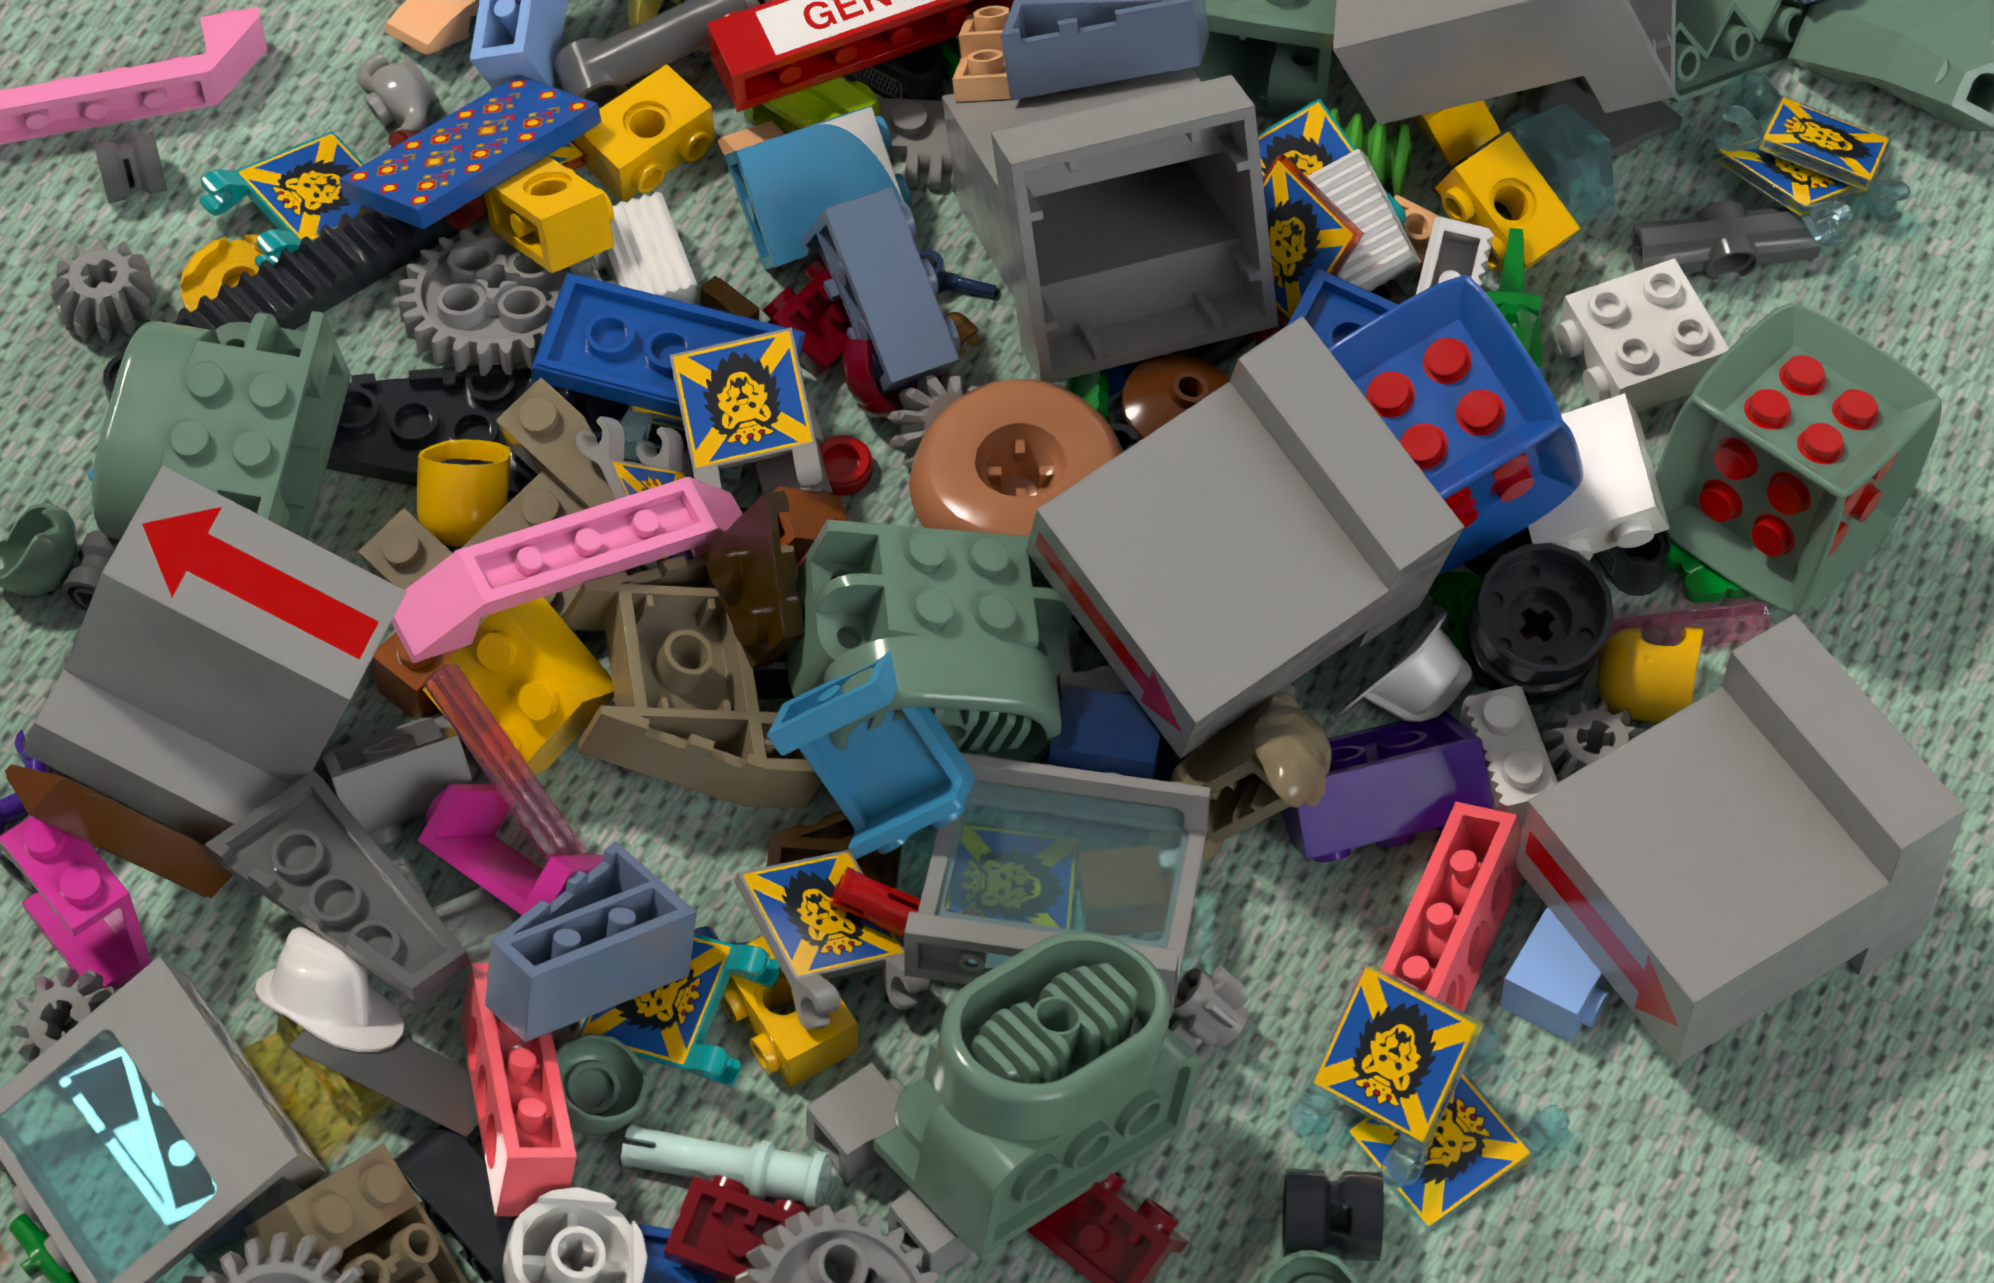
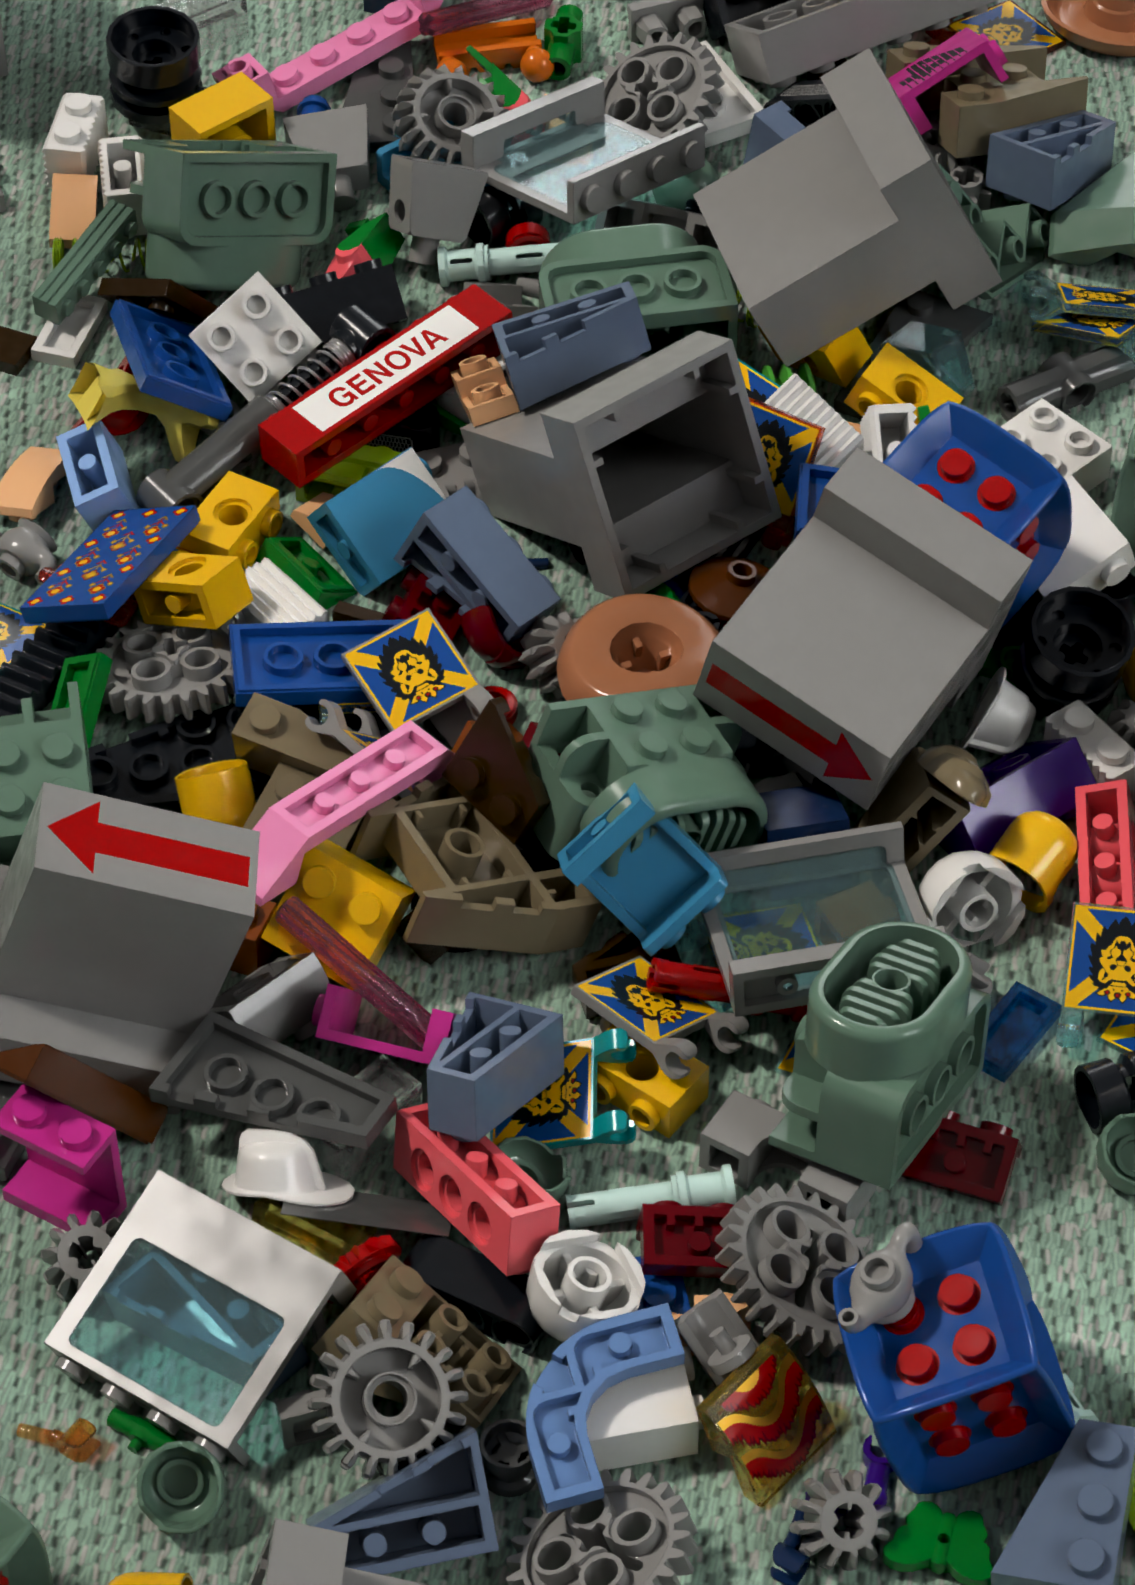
camera: 20 degrees left, 10 degrees down
(350, 1139) = (366, 1259): none -> red gear
(372, 308) = (91, 674): none -> green tile
(707, 219) = (307, 569): none -> green slope
(1248, 1087) = (1016, 1028): none -> clear blue tile
(1269, 901) = (975, 893): none -> white cylinder
(1366, 876) = (1042, 849): none -> yellow helmet

